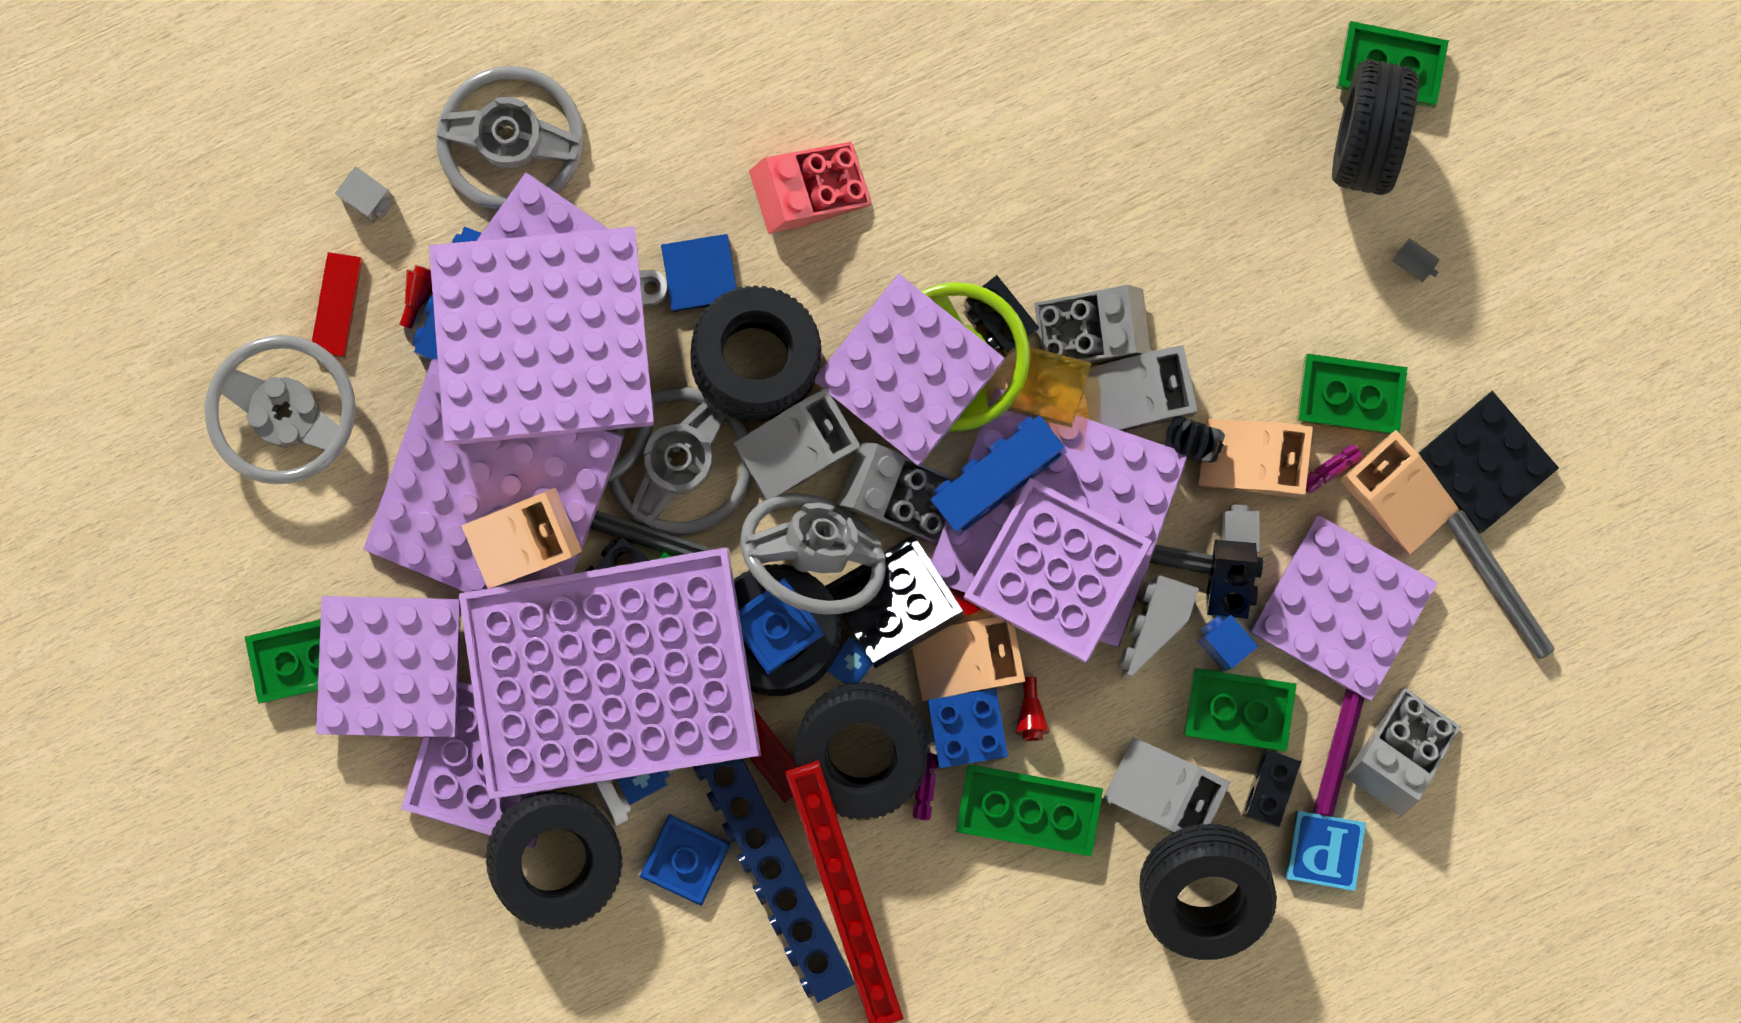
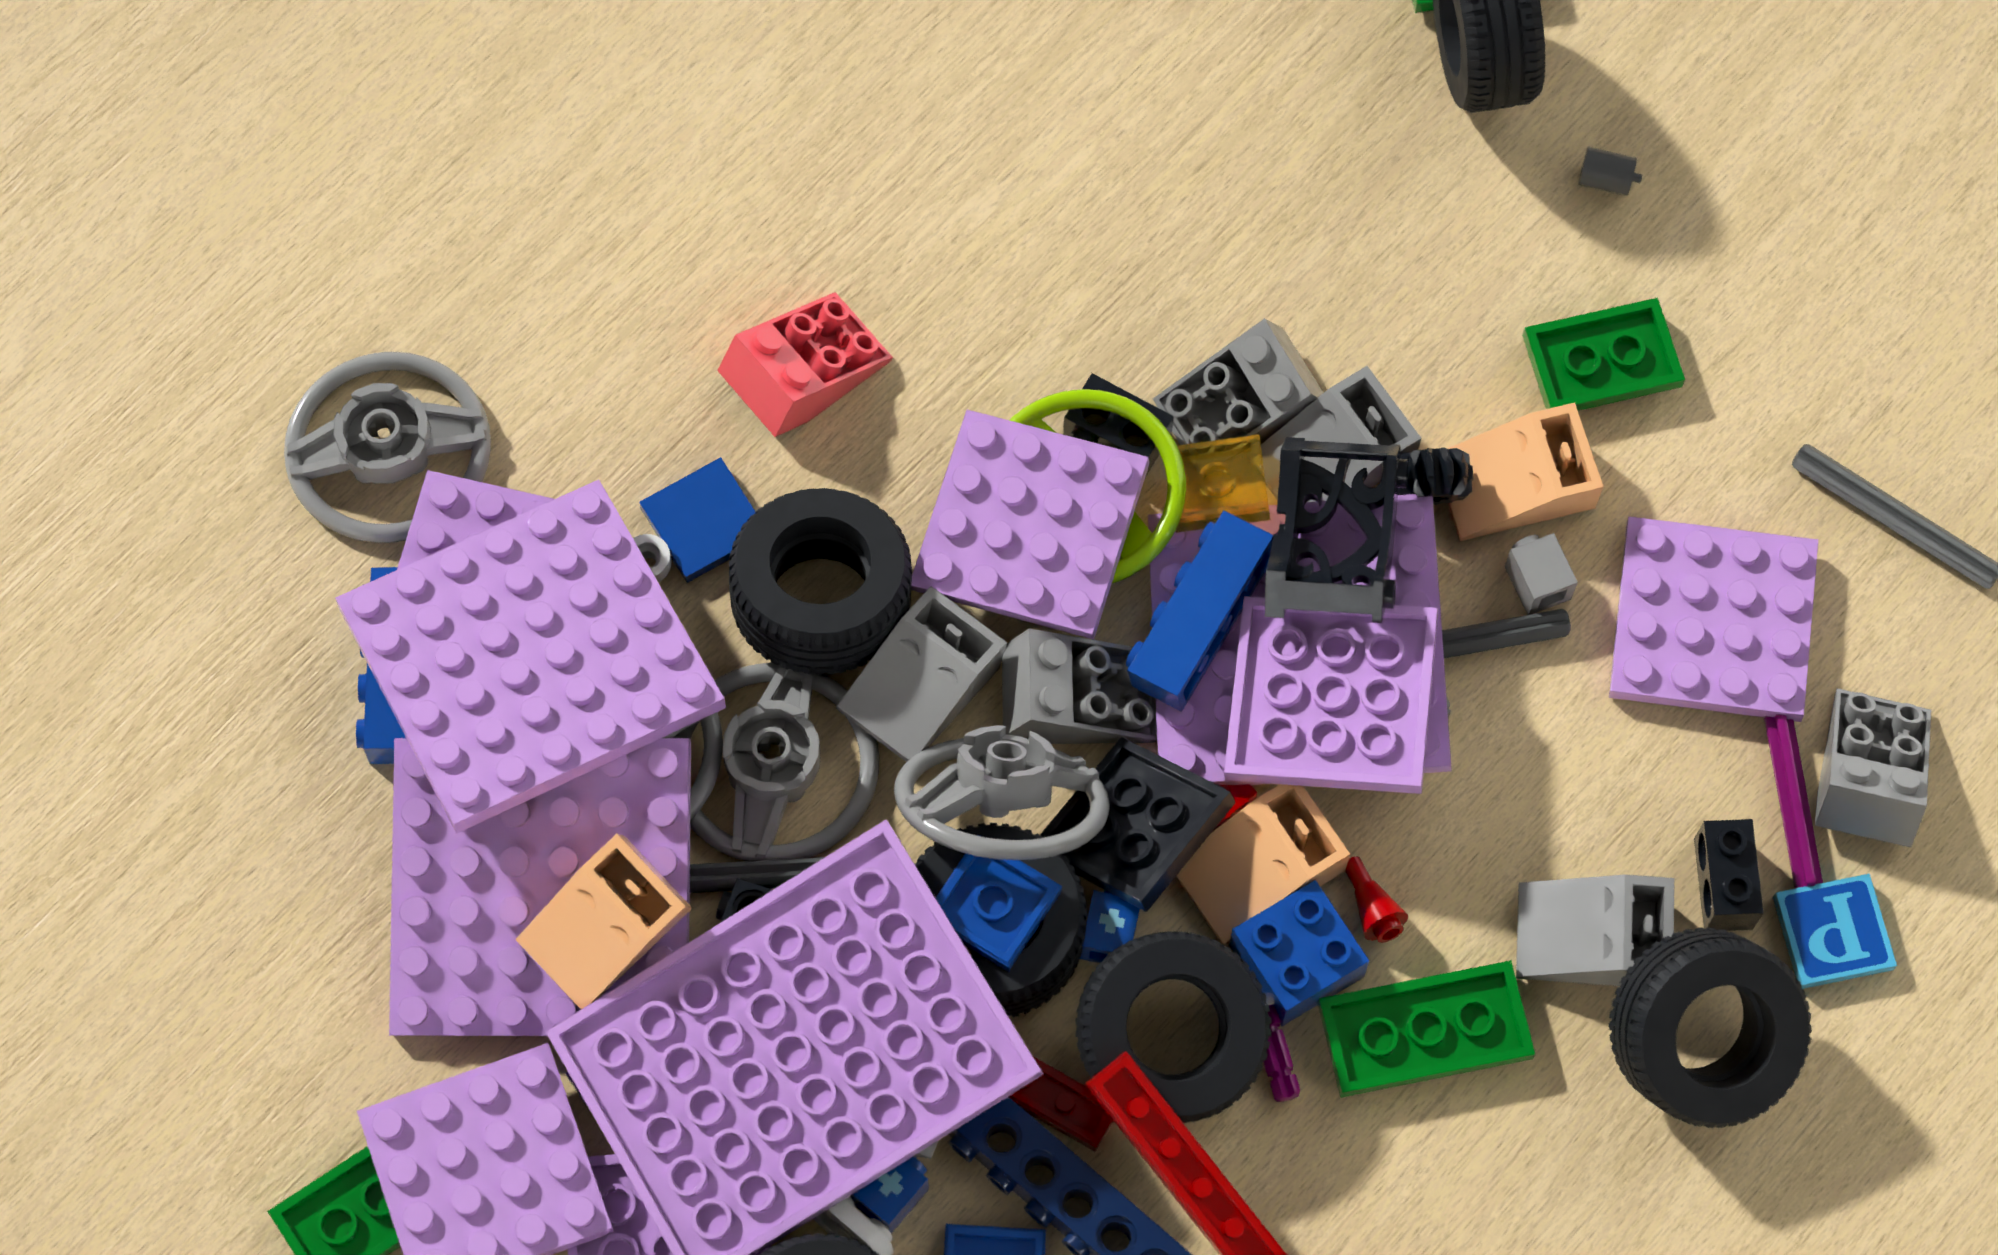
camera: 20 degrees left, 15 degrees down
(265, 398) = (180, 890): light grey piece -> none
(337, 302) = (233, 737): red tile -> none
(365, 195) = (221, 582): light grey brick -> none
(416, 293) = (337, 672): red cone -> none
(1060, 483) = (1300, 481): none -> black fence
(1164, 614) = (1488, 699): light grey slope -> none
(1226, 642) = (1585, 709): blue brick -> none
(1227, 579) = (1549, 632): black brick -> none
(1240, 709) = (1640, 794): green plate -> none
(1333, 467) = (1623, 452): magenta axle -> none
(1400, 492) = (1718, 447): light nougat slope -> none
(1487, 461) = (1807, 376): black plate -> none

